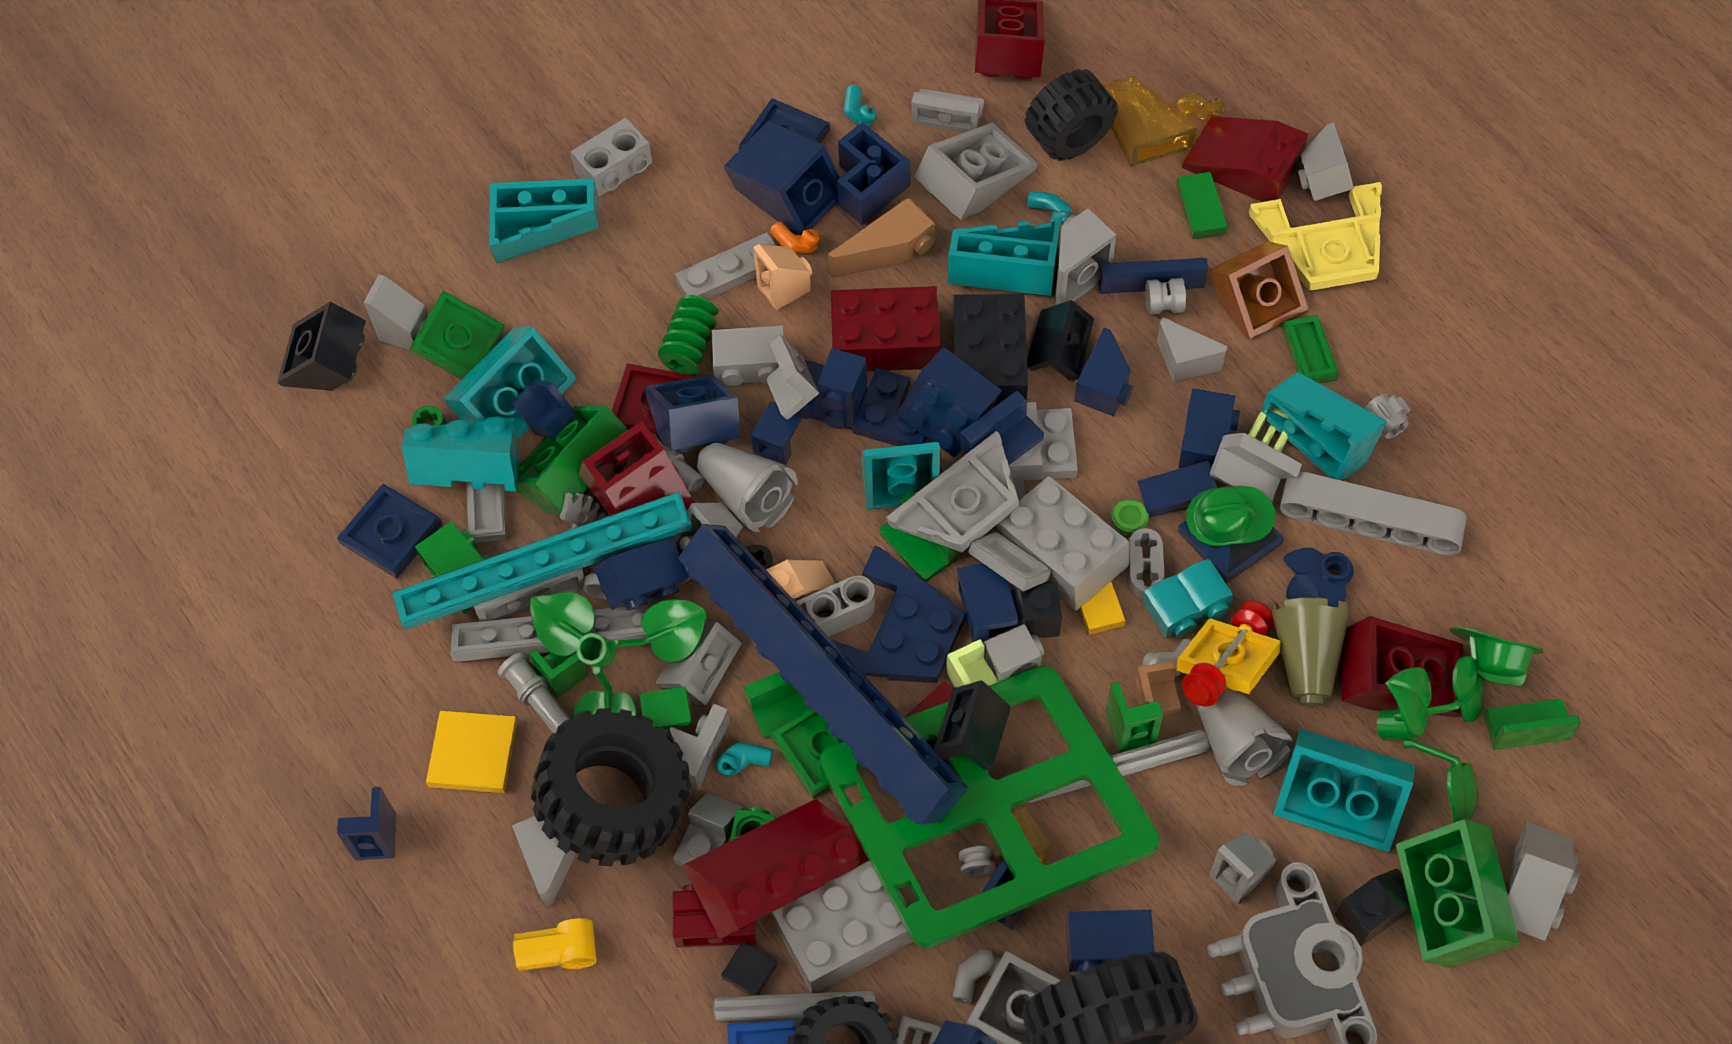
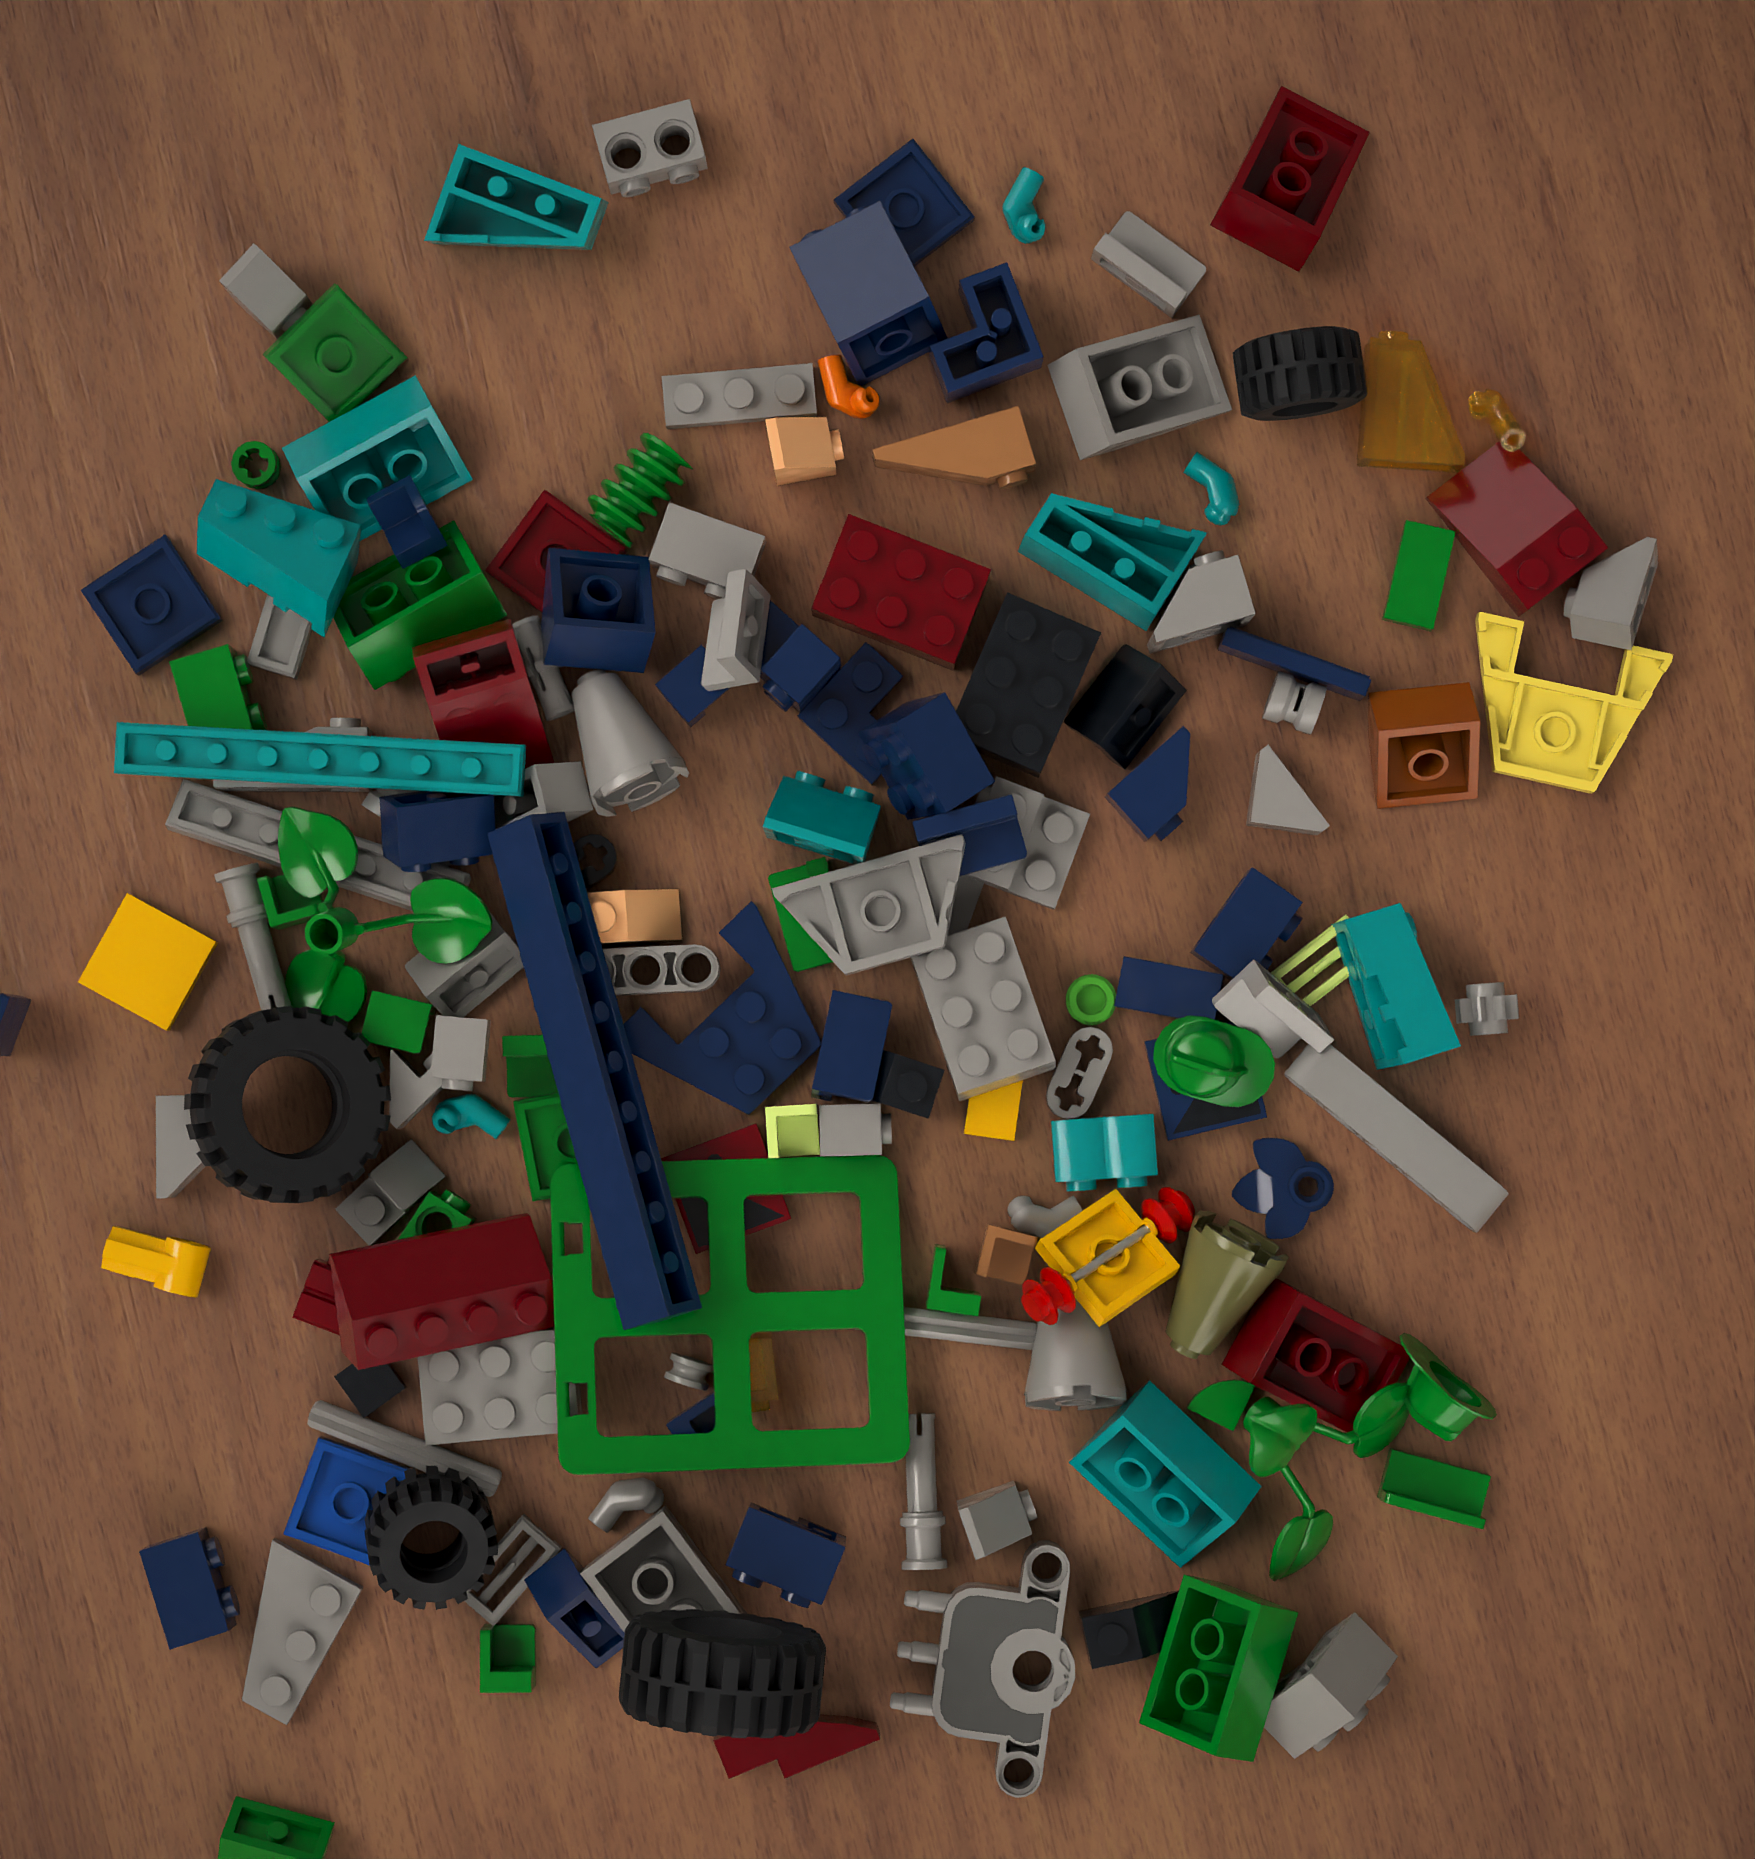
camera: 20 degrees right, 25 degrees up
(323, 349) = (152, 295): black slope -> none
(580, 511) = (398, 694): light grey piece -> none
(719, 698) = (460, 1051): none -> light grey brick
(973, 724) = (753, 1214): black panel -> none
(1009, 561) = (898, 1015): light grey tile -> none
(1192, 892) = (922, 1519): none -> light grey pin
(1310, 349) = (1446, 861): green tile -> none
(1356, 728) = (1222, 1401): none -> green tile

